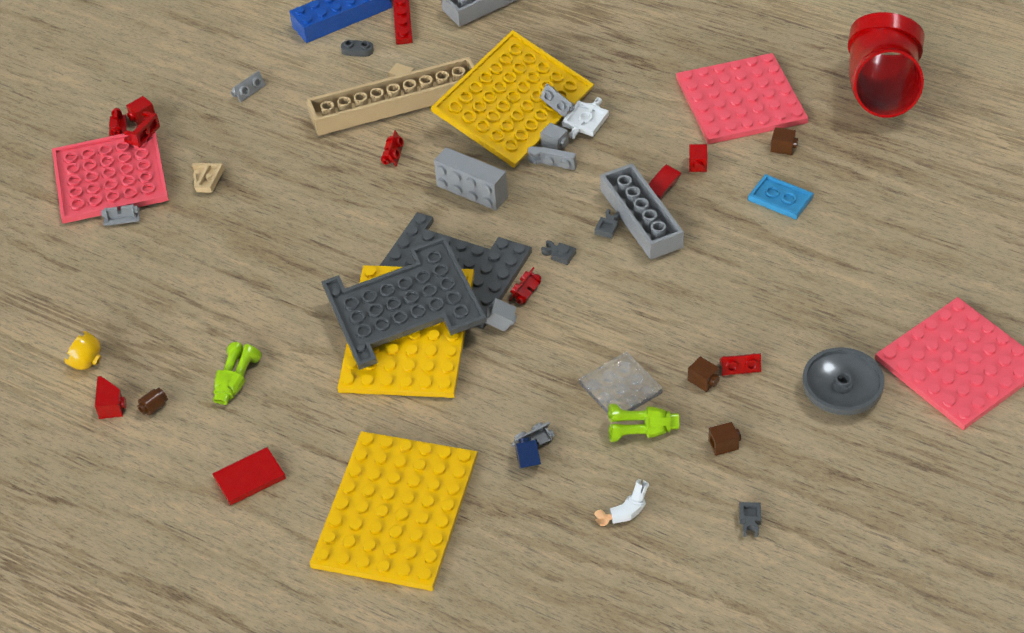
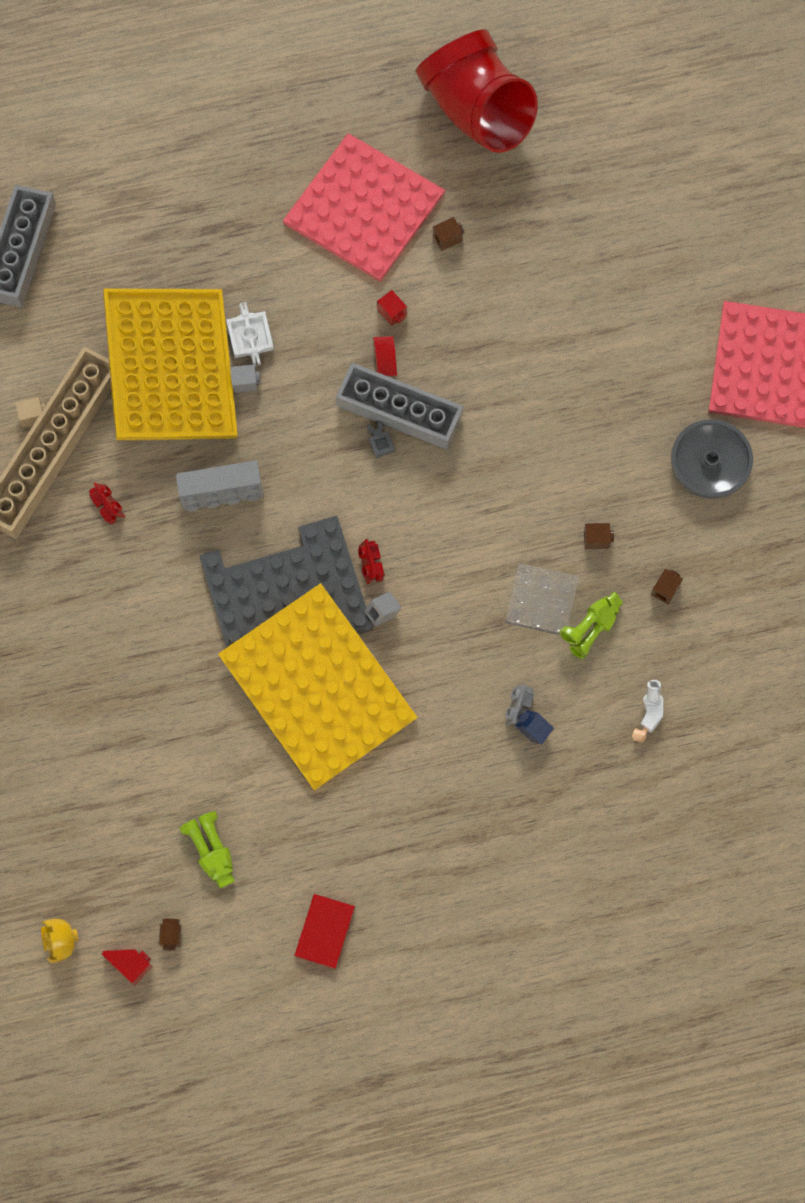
camera: 45 degrees left, 25 degrees up
(395, 511) = (473, 861): yellow plate -> none
(404, 301) = (297, 664): dark grey piece -> none
(552, 157) = (263, 403): light grey hinge -> none
(556, 100) = (209, 338): light grey hinge -> none
(561, 253) = (366, 500): dark grey plate -> none
(740, 364) = (620, 495): red hinge -> none
(750, 517) = (746, 641): dark grey plate -> none
(780, 196) = (494, 297): dark azure tile -> none

